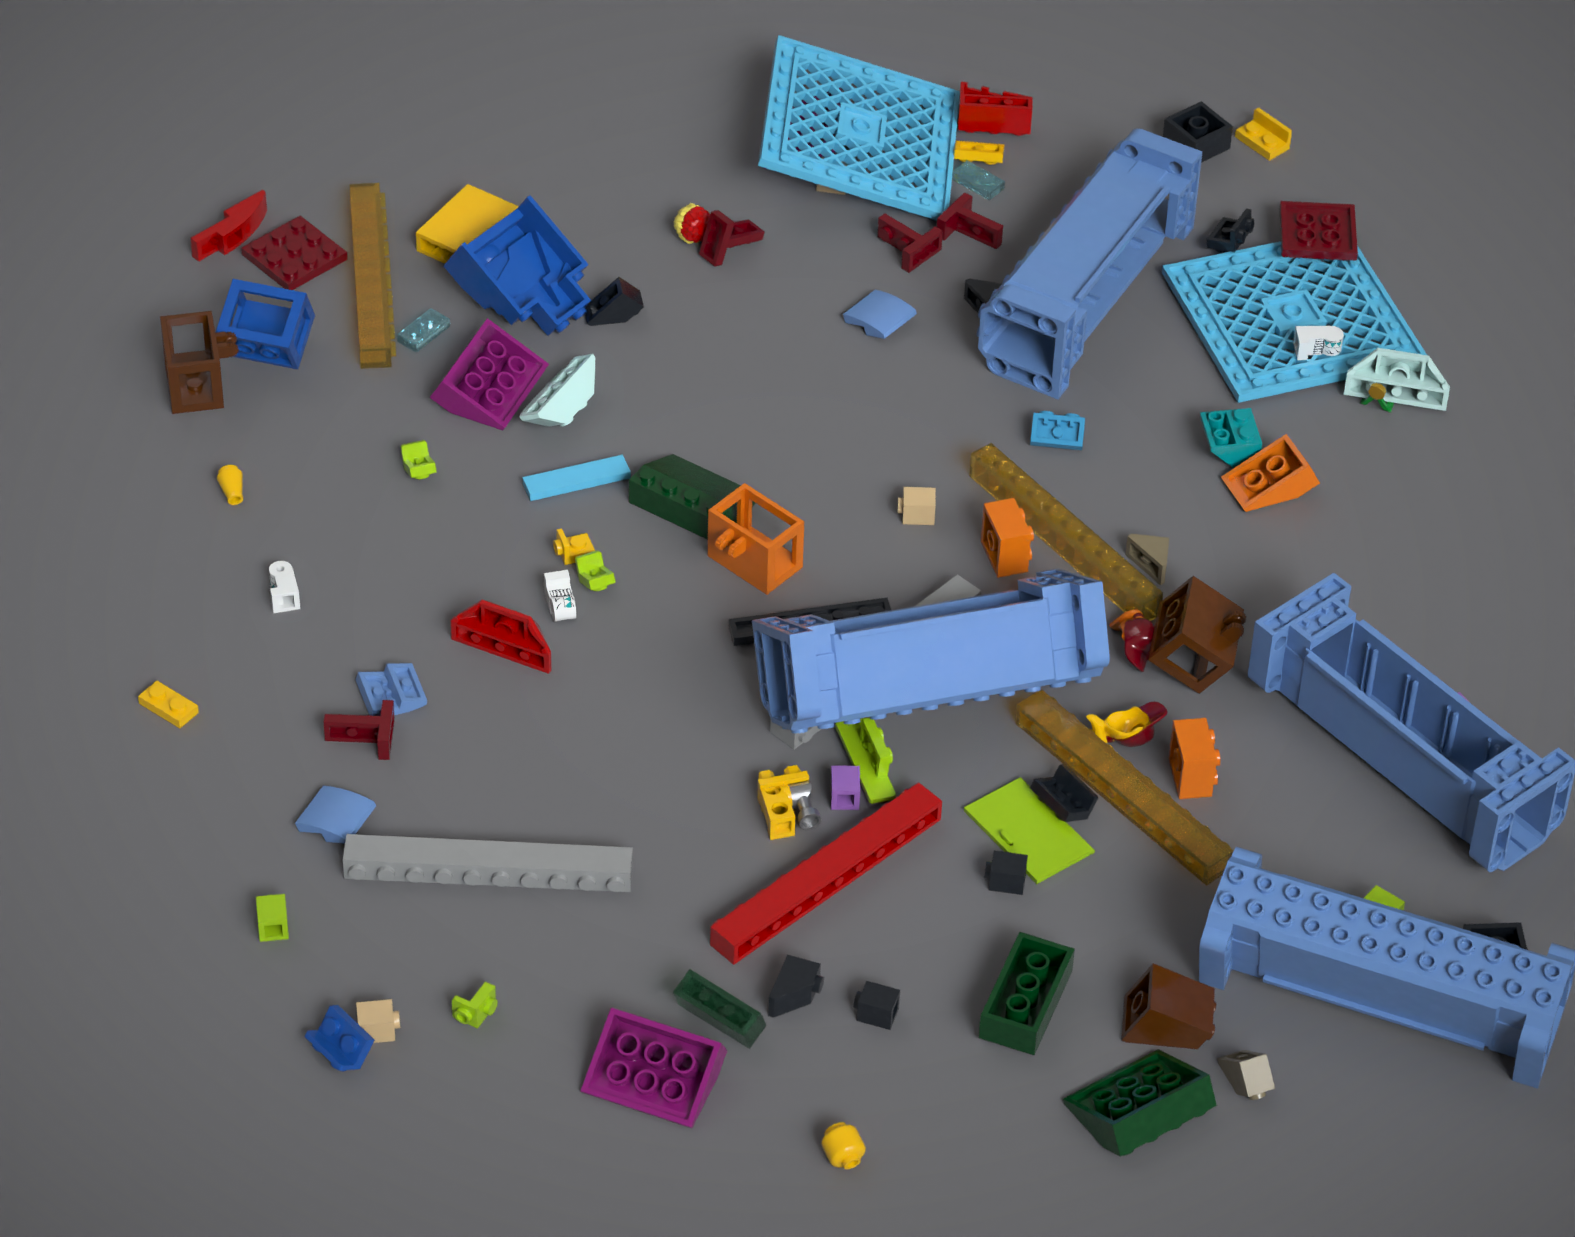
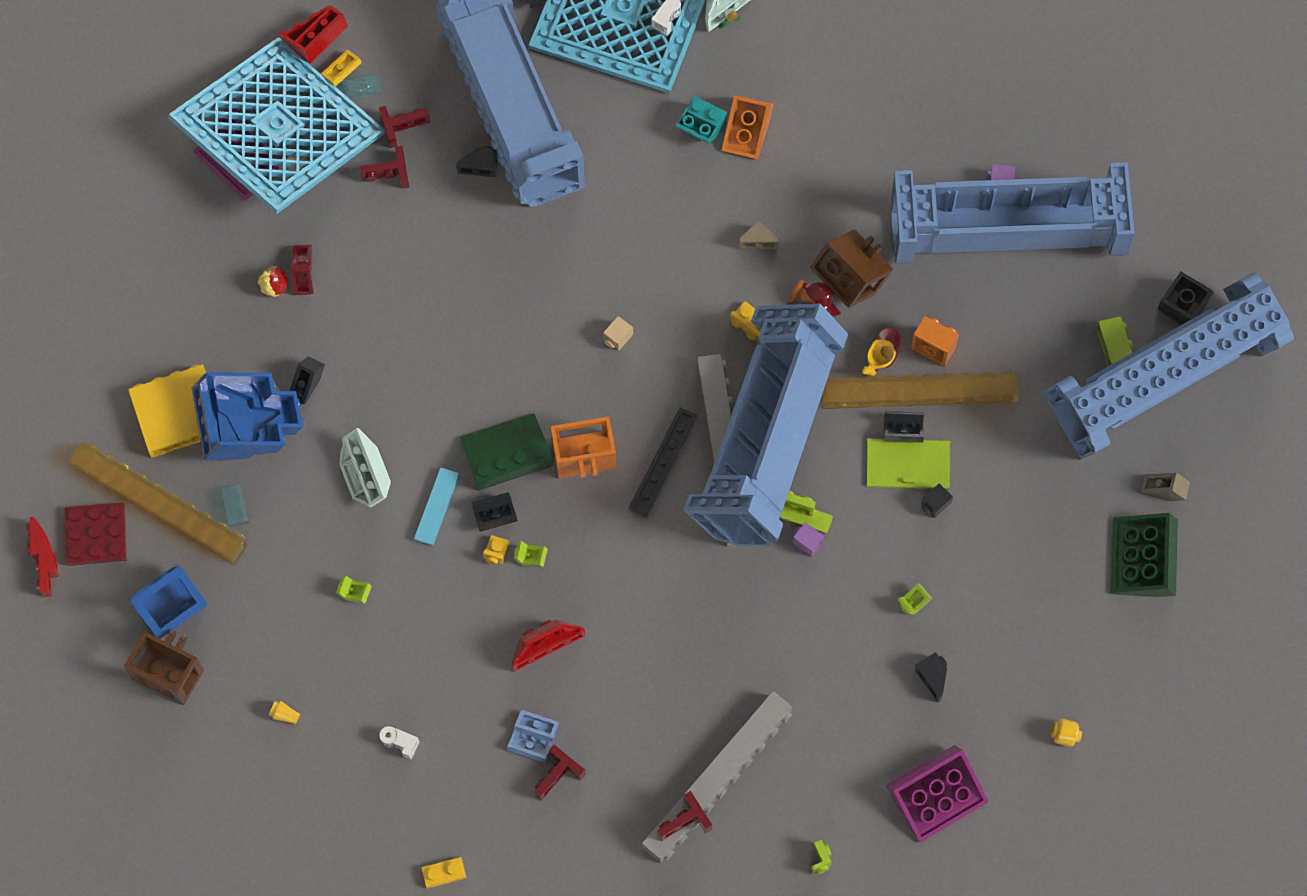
camera: 50 degrees left, 25 degrees up
(335, 814) = (611, 836): medium blue slope -> none
(404, 846) = (685, 818): none -> dark red bracket
(490, 378) = (311, 497): magenta slope -> none
(559, 595) = (534, 588): white leg -> none
(615, 518) = (494, 511): none -> black bracket
(719, 1008) = (925, 728): clear green brick -> none
(778, 798) = (788, 579): yellow hips -> none
(825, 873) = (864, 597): red brick -> none
(867, 920) = (914, 600): none -> lime bracket
(877, 1005) = (980, 641): black brick -> none
(880, 314) = (437, 232): medium blue slope -> none
(1006, 537) = (689, 307): orange brick -> none
(1026, 993) = (1034, 558): dark green brick -> none
(1057, 430) = (617, 210): dark azure bracket -> none
(1065, 532) = (704, 271): clear yellow brick -> none
(1168, 1010) = (1097, 495): reddish brown slope -> none

